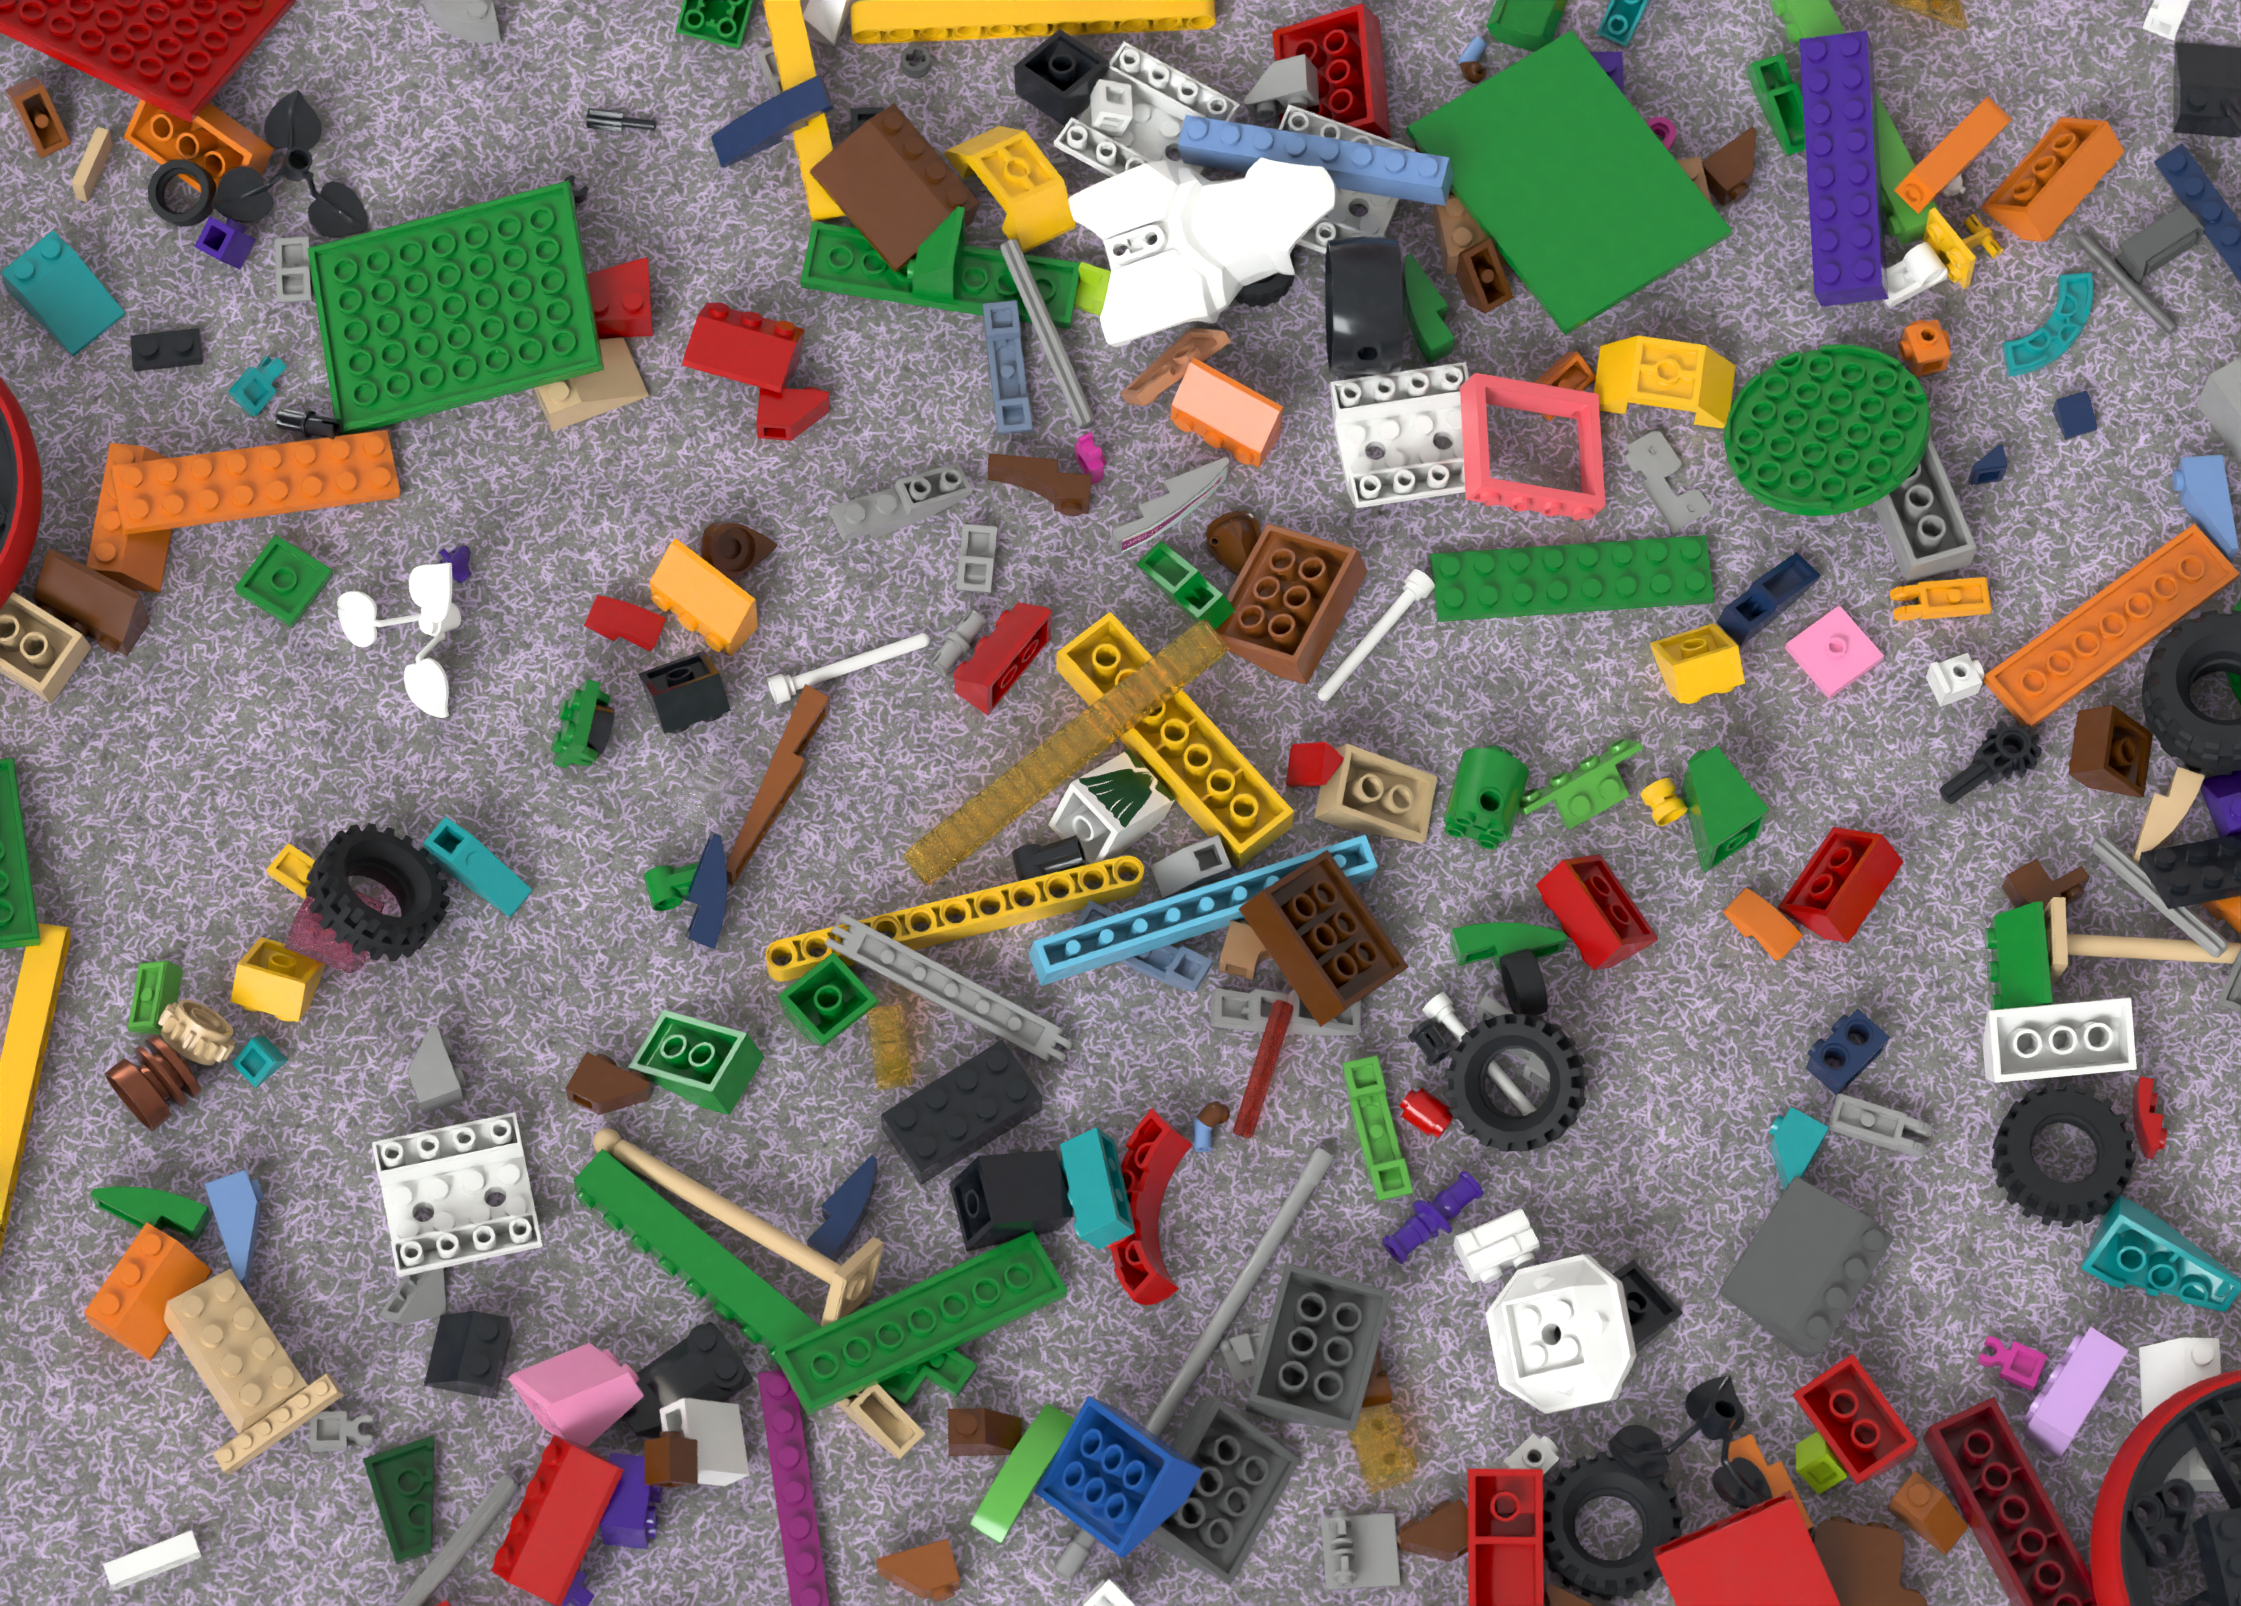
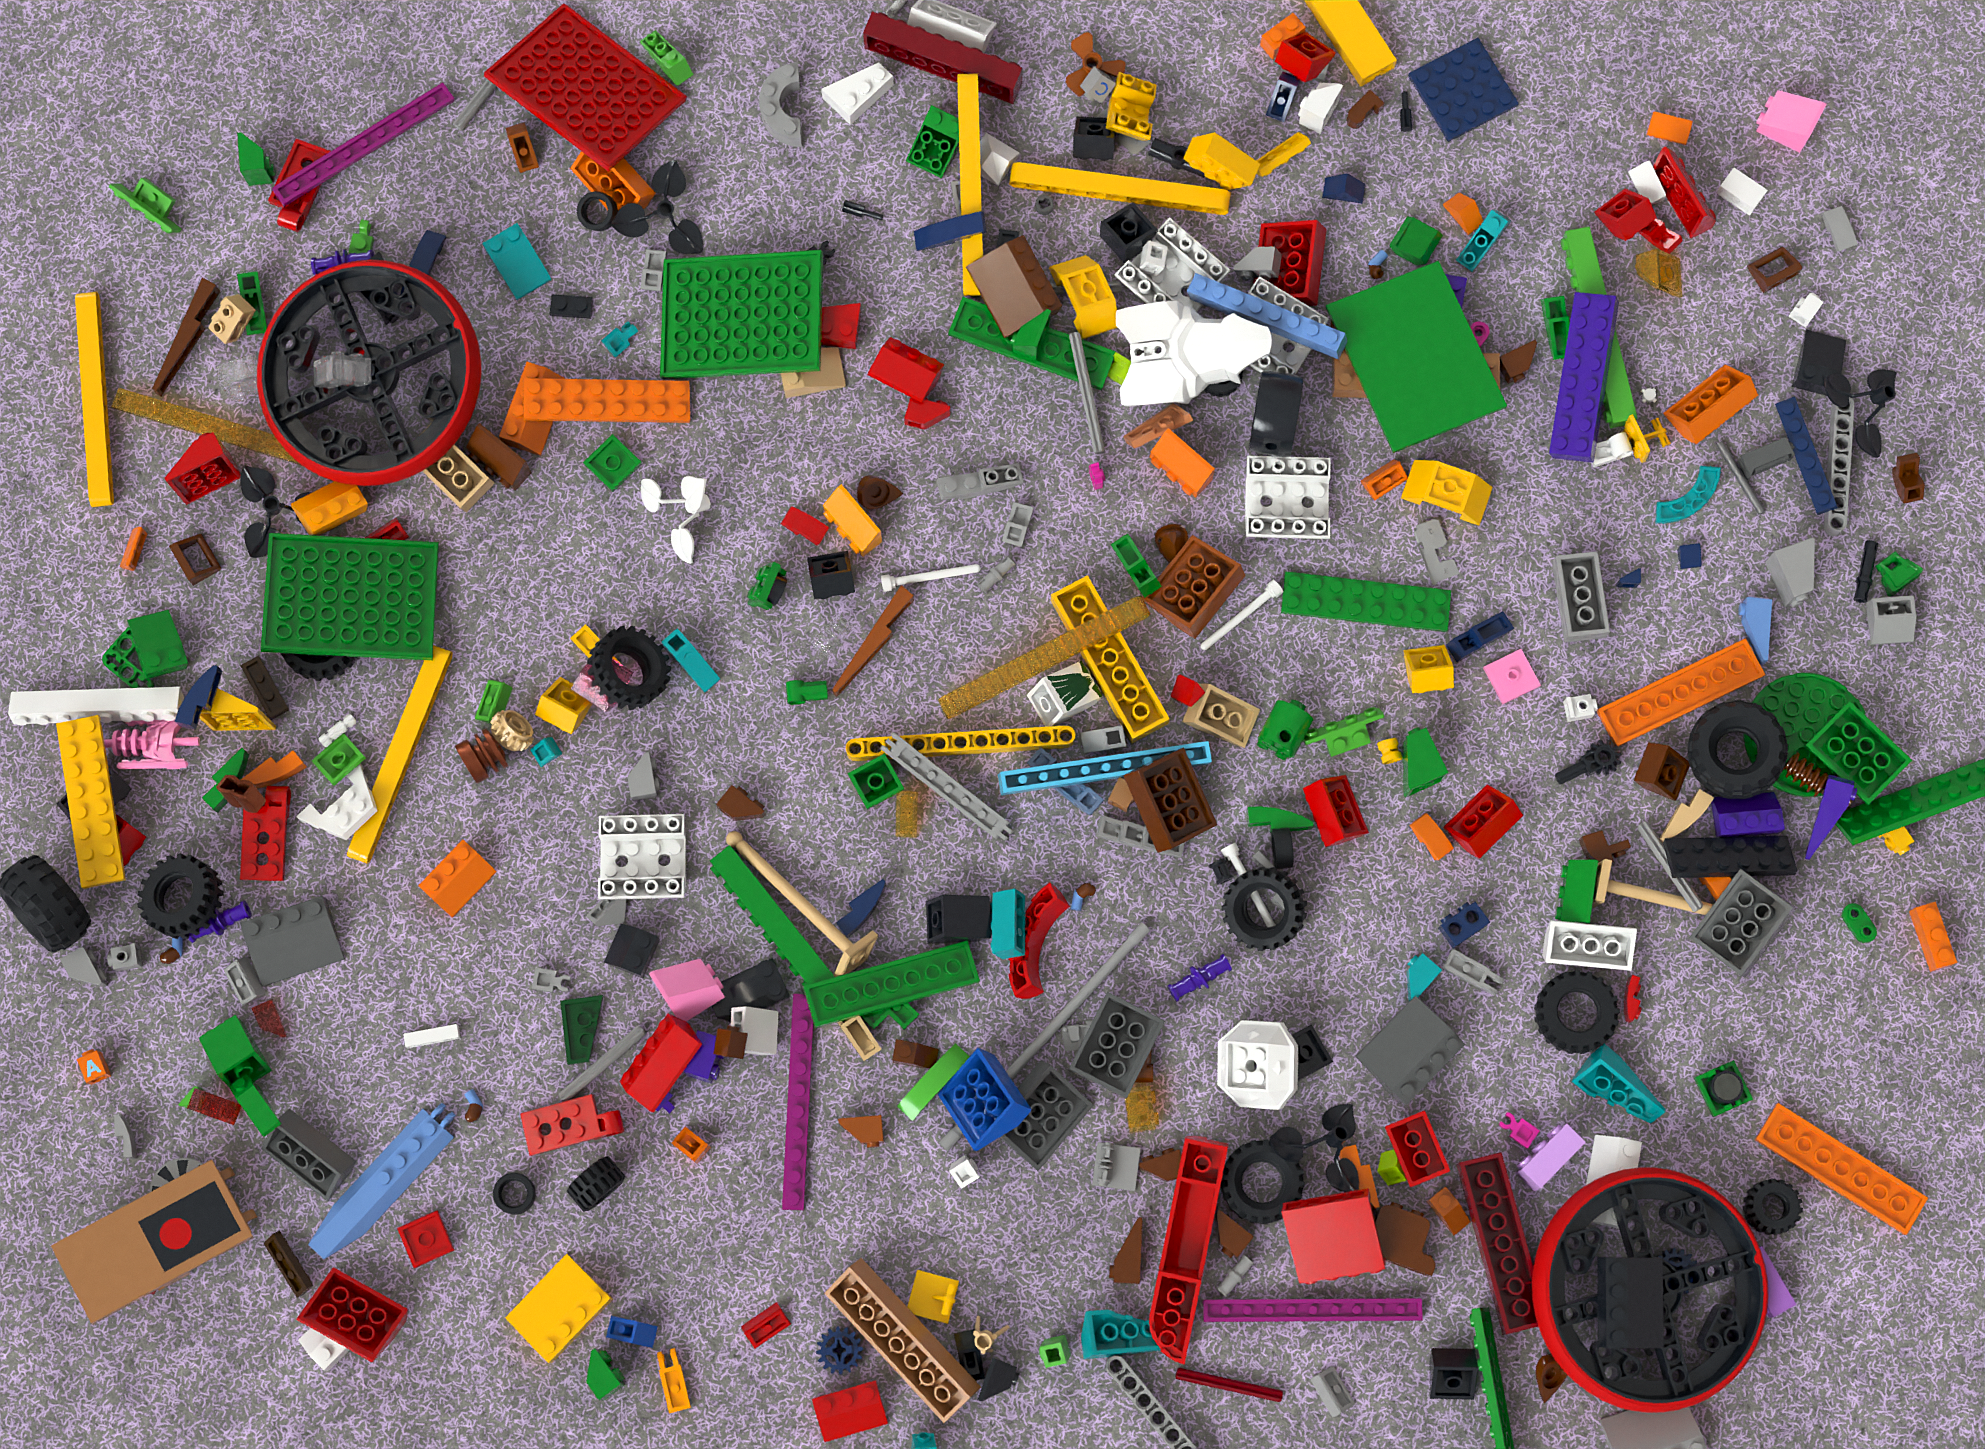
camera: 15 degrees right, 10 degrees up
(92, 164) = (548, 183): tan tile -> none
(155, 1207) = (470, 830): green slope -> none
(225, 241) = (616, 247): dark purple brick -> none
(233, 1349) = (499, 924): tan brick -> none
(238, 1218) = (515, 842): medium blue slope -> none
(278, 1424) = (516, 971): tan piece -> none
(309, 423) = (644, 368): black axle -> none
(460, 560) = (712, 471): dark purple piece -> none
(698, 1060) = (795, 800): green slope -> none
(709, 892) = (819, 704): dark blue slope -> none
(961, 1112) = (940, 861): black brick -> none
(1003, 655) = (1020, 588): red slope -> none
(1006, 367) = (1059, 409): sand blue slope -> none
(1040, 475) = (1079, 493): reddish brown slope -> none
(1040, 860) = (1026, 718): black piece -> none
(1179, 498) = (1145, 509): light grey slope -> none
(1263, 1069) = (1120, 869): clear red axle -> none
(1376, 1129) = (1178, 918): bright green slope -> none
(1425, 312) = (1314, 420): green slope -> none
(1426, 1112) = (1209, 913): red brick -> none
(1482, 277) = (1352, 406): reddish brown slope -> none
(1497, 1247) = (1233, 1002): white brick -> none
(1538, 398) = (1320, 537): coral window -> none
(1542, 1448) = (1217, 1133): white brick -> none
(1827, 430) = (1537, 540): green tile -> none
(1925, 347) = (1608, 497): orange brick -> none
(1943, 599) = (1584, 656): light orange hinge -> none
(1953, 155) = (1652, 381): orange slope -> none

